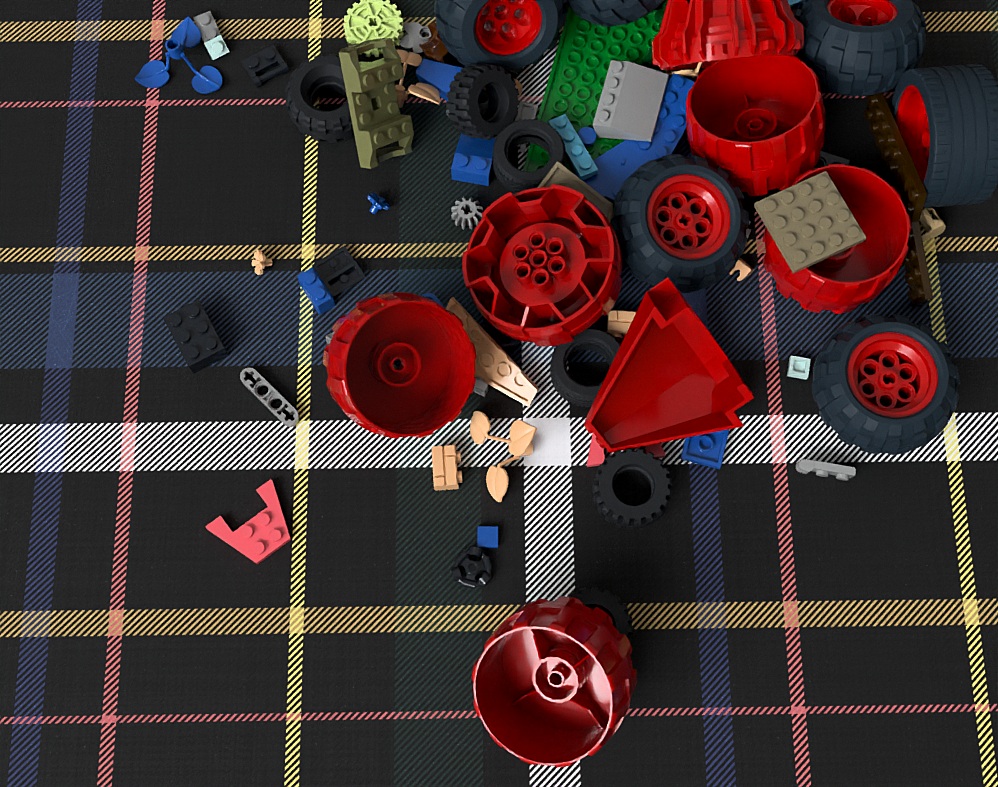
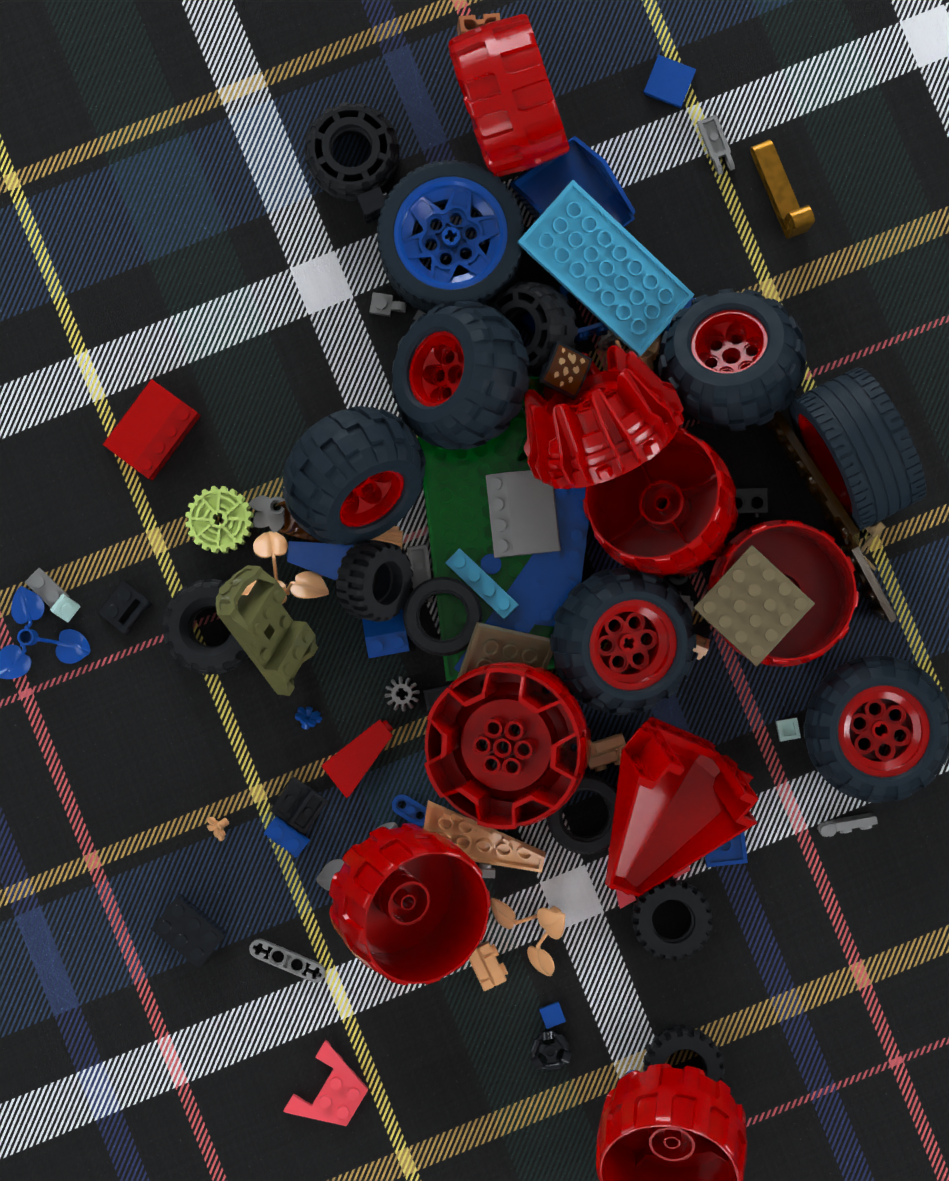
camera: 20 degrees left, 15 degrees up
(406, 249) = (356, 758): none -> red slope

